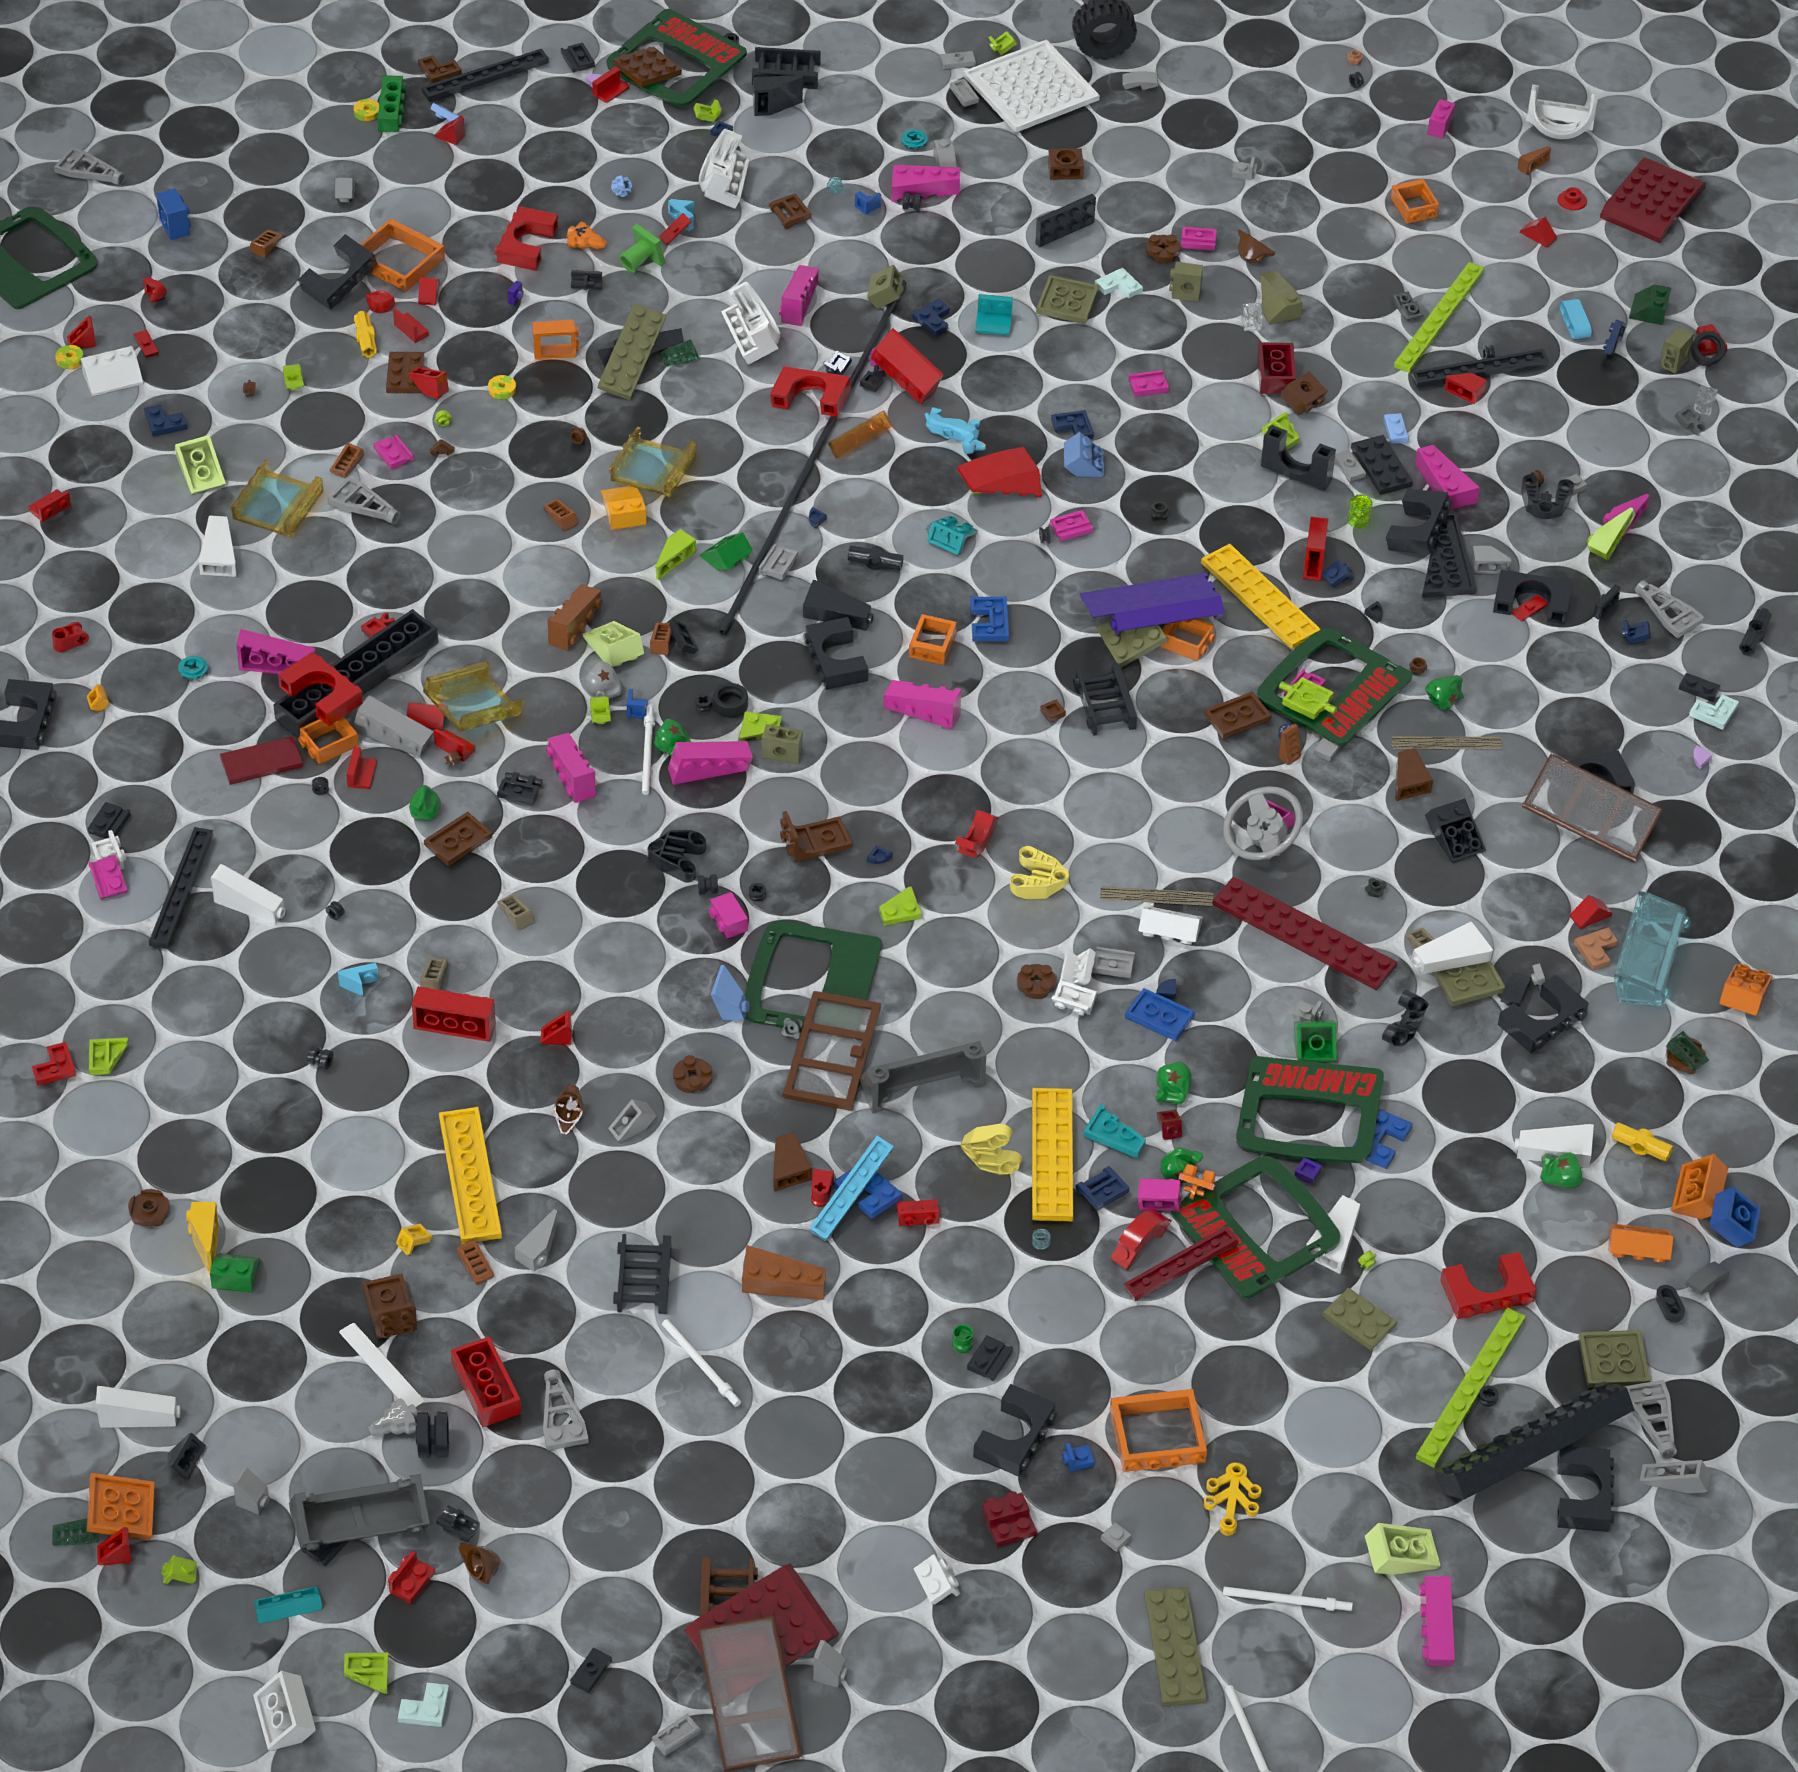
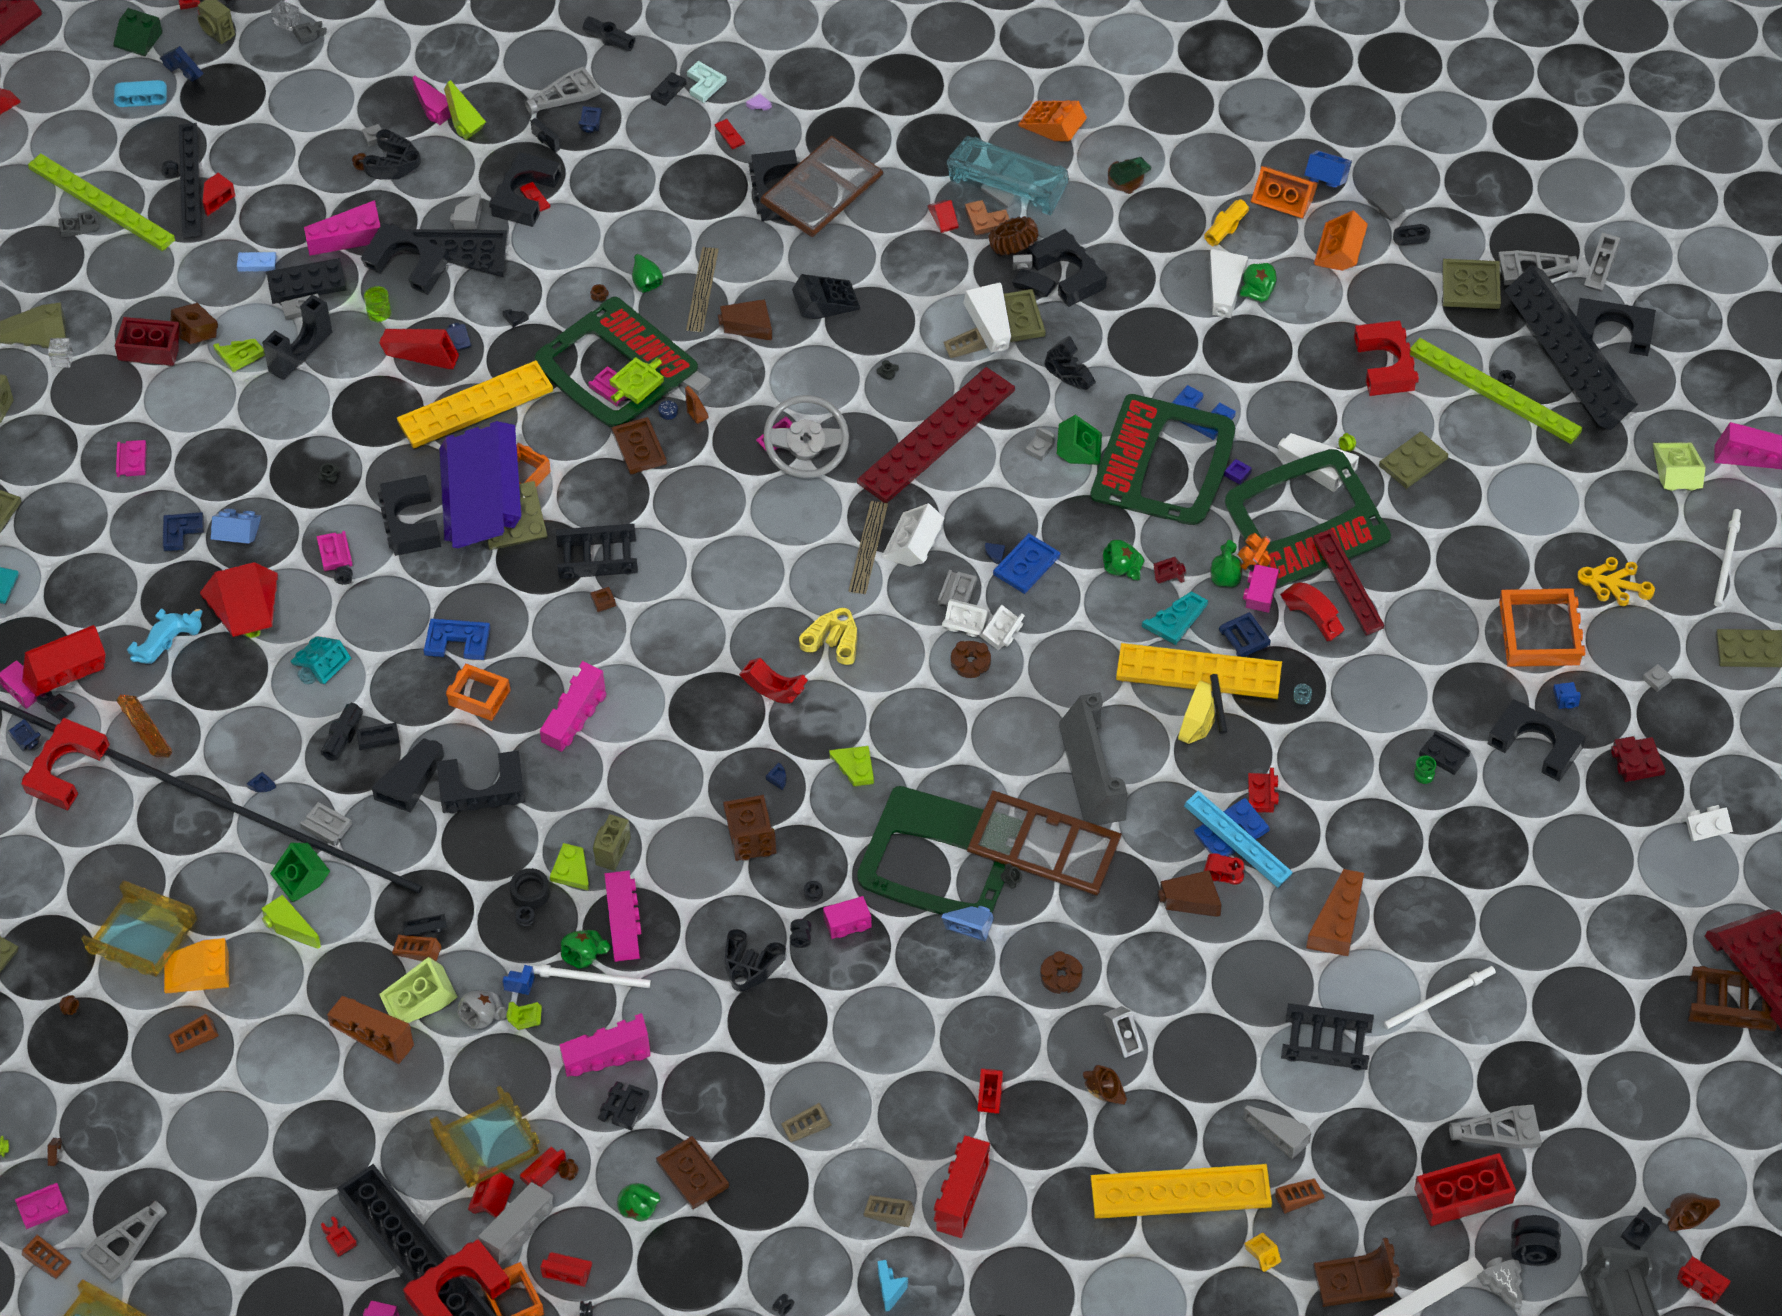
camera: 80 degrees left, 5 degrees up
(875, 581) = (377, 736): none -> black plate
(1013, 1169) = (1218, 703): none -> black bar
(1136, 555) = (407, 537): none -> black arch
(1567, 962) = (1013, 235): none -> reddish brown gear
(1654, 740) = (729, 134): none -> red piece

